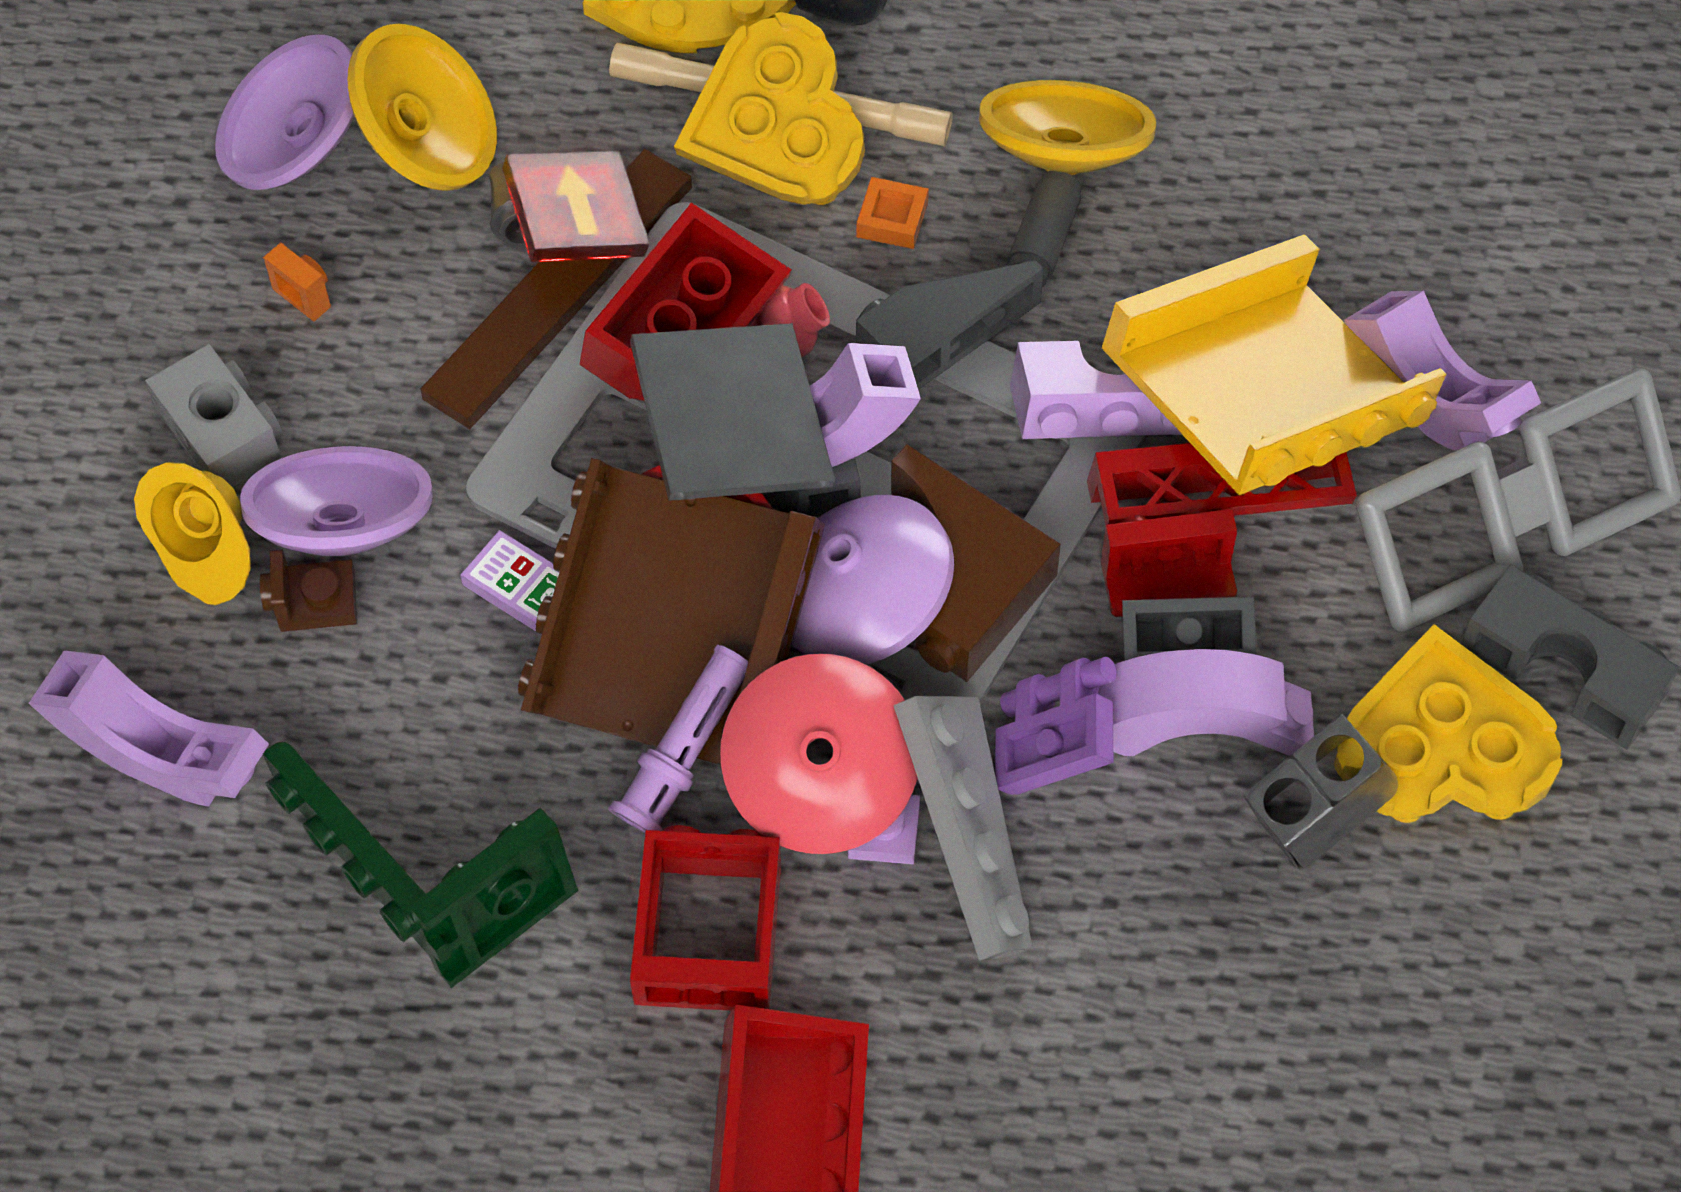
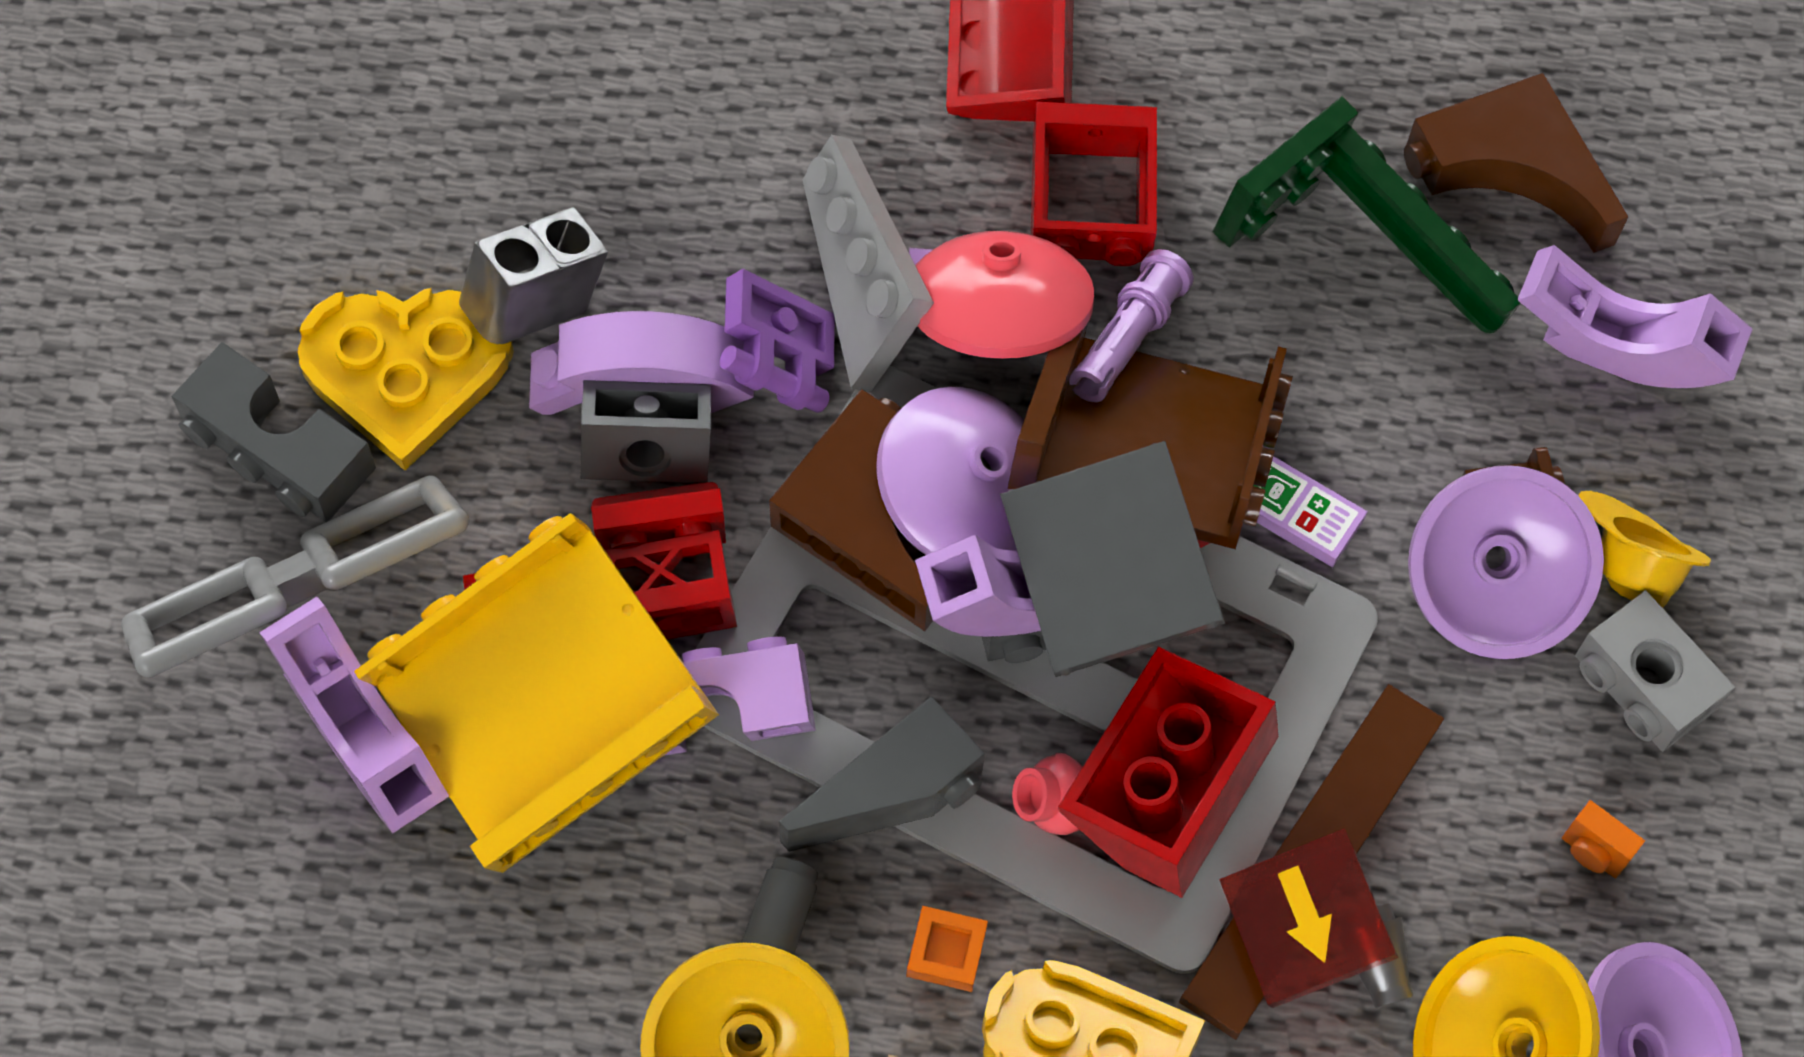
camera: 175 degrees right, 5 degrees up
(230, 964) = (1521, 145): none -> reddish brown arch

